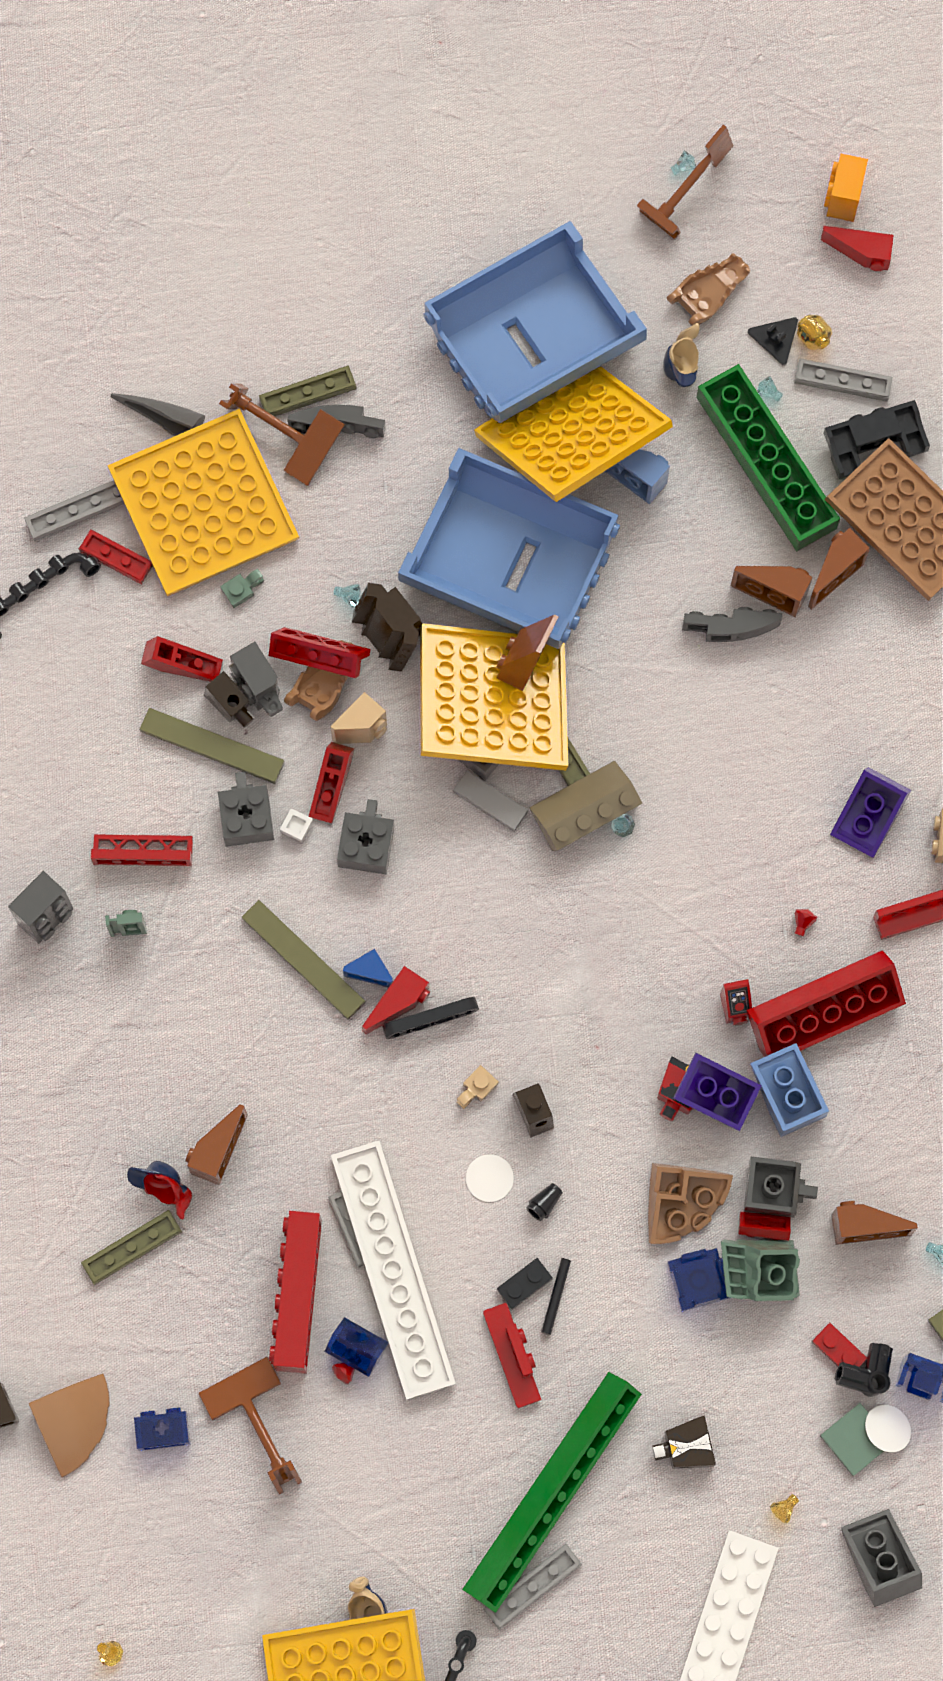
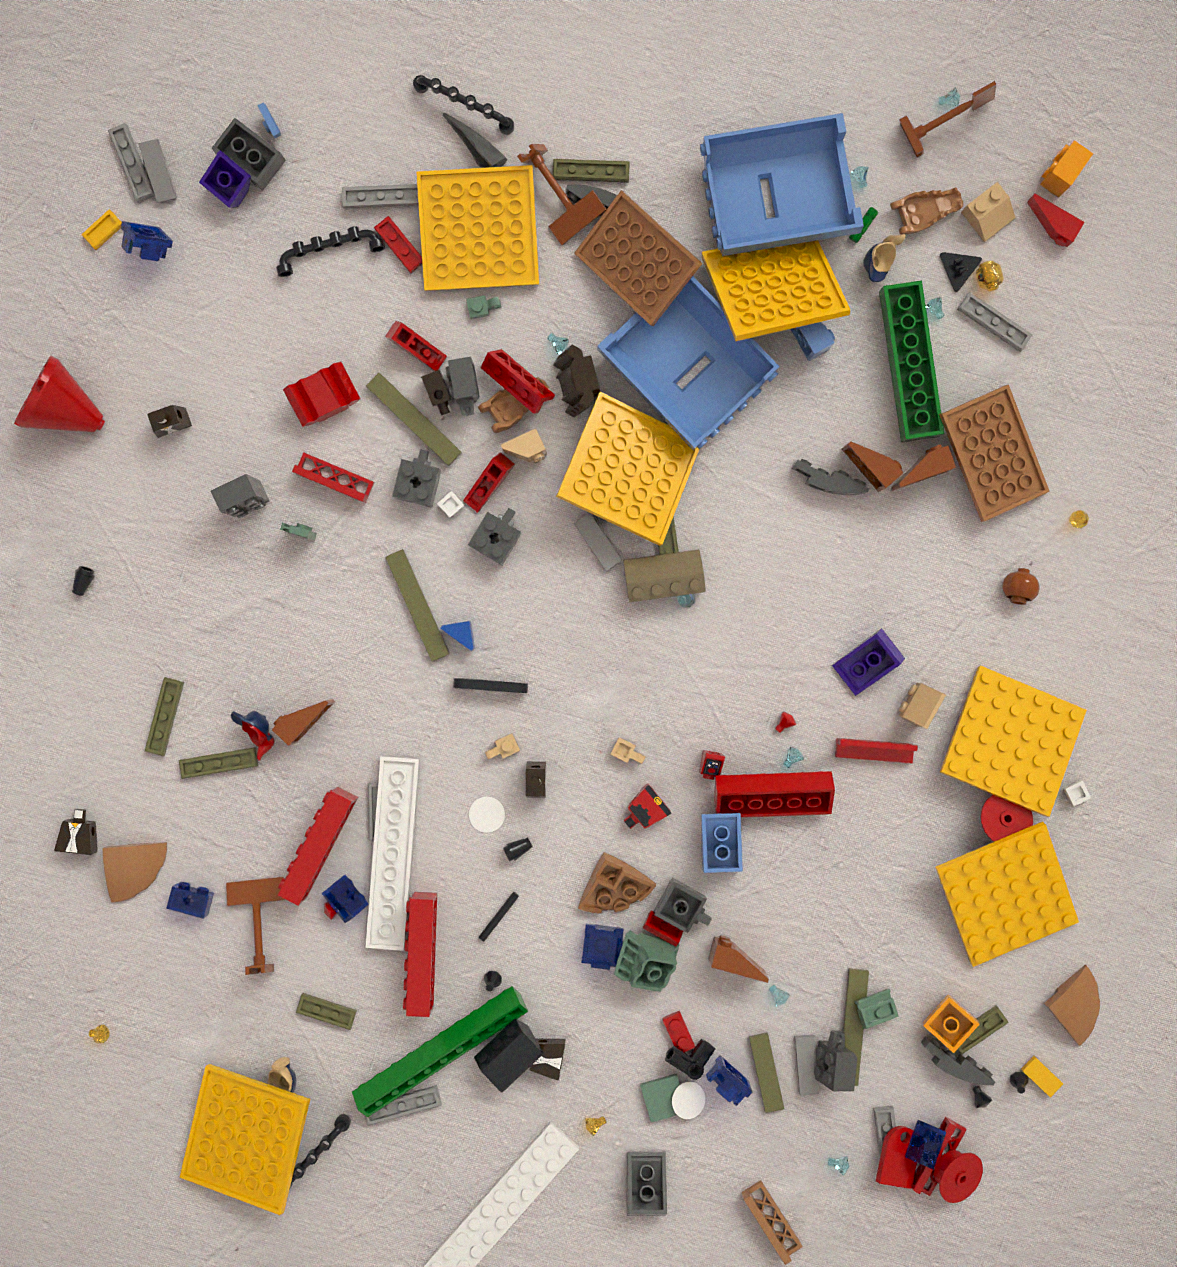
camera: 20 degrees right, 15 degrees up
(42, 1217) = (164, 716): none -> olive tile
(72, 371) = (422, 84): none -> black bar
(93, 755) = (322, 394): none -> red slope
(388, 1504) = (326, 1011): none -> olive tile
(400, 998) = (475, 662): red slope -> none
(404, 461) = (637, 258): none -> medium nougat piece
(480, 1374) = (421, 954): none -> red brick
(512, 1355) = (451, 945): red bracket -> none
(524, 1283) = (480, 898): black plate -> none
(525, 652) = (666, 446): dark orange slope -> none
(581, 1377) = (492, 980): none -> black rock
(619, 280) = (860, 174): none -> clear light blue rock
(626, 1031) = (625, 750): none -> tan plate
(640, 1456) = (509, 1054): none -> black slope
(649, 321) = (867, 220): none -> green axle
(717, 1091) = (670, 826): dark purple slope -> none
(783, 265) = (989, 212): none -> tan slope
(831, 957) = (793, 756): none -> clear light blue rock
(868, 432) = (999, 372): black bracket -> none

